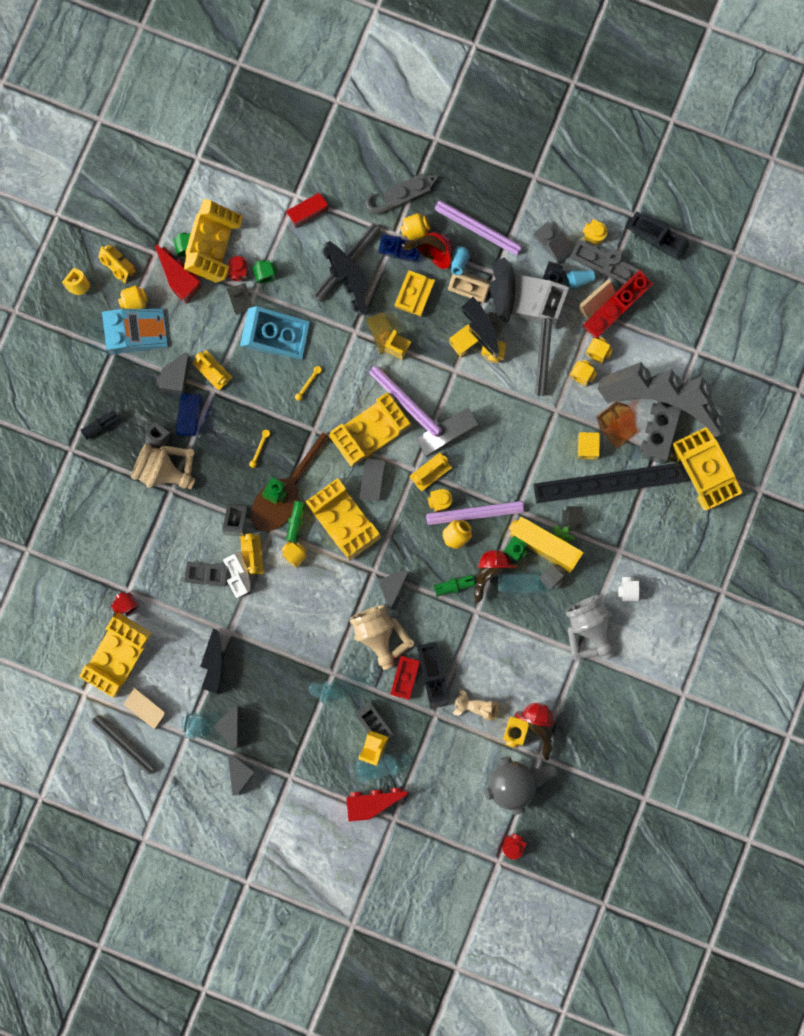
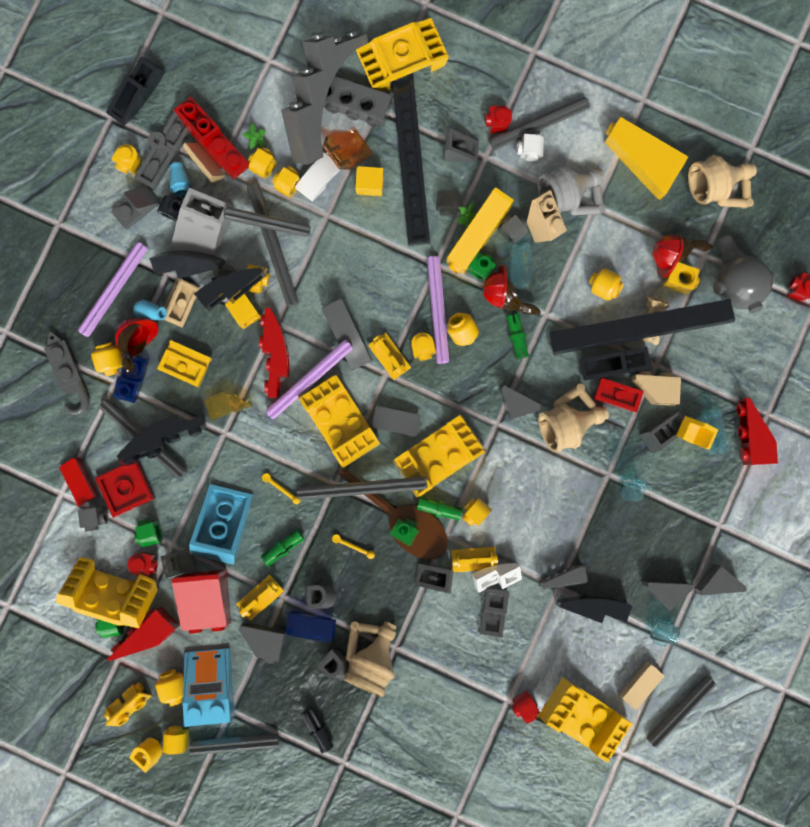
camera: 90 degrees left, 5 degrees up
(85, 355) = (234, 744): none -> dark grey axle
(89, 305) = (175, 740): none -> yellow plate
(208, 321) = (202, 600): none -> slope
(214, 421) = (320, 597): none -> dark grey plate
(240, 640) = (571, 576): none -> dark grey slope
(256, 387) = (282, 547): none -> green pin
(276, 224) = (92, 518): none -> dark grey plate
(302, 249) = (124, 488): none -> red tile
(311, 451) = (361, 488): none -> dark grey axle
(397, 345) = (244, 385): yellow panel -> none
(411, 714) = (658, 389): none -> tan slope
(436, 370) = (274, 344): none -> red slope
(466, 693) = (642, 326): none -> black tile
(505, 663) = (606, 284): none -> yellow head
(523, 364) = (273, 247): none -> dark grey axle
(561, 602) = (544, 218): none -> tan slope
(588, 398) = (317, 177): none -> white slope
(608, 758) = (715, 179): none -> tan piece
(623, 342) = (255, 137): none -> bright green plant
(624, 525) = (460, 147): none -> dark grey slope
(625, 699) = (646, 156): none -> yellow slope
(653, 559) = (498, 119): none -> red plate
(653, 598) = (539, 123): none -> dark grey axle

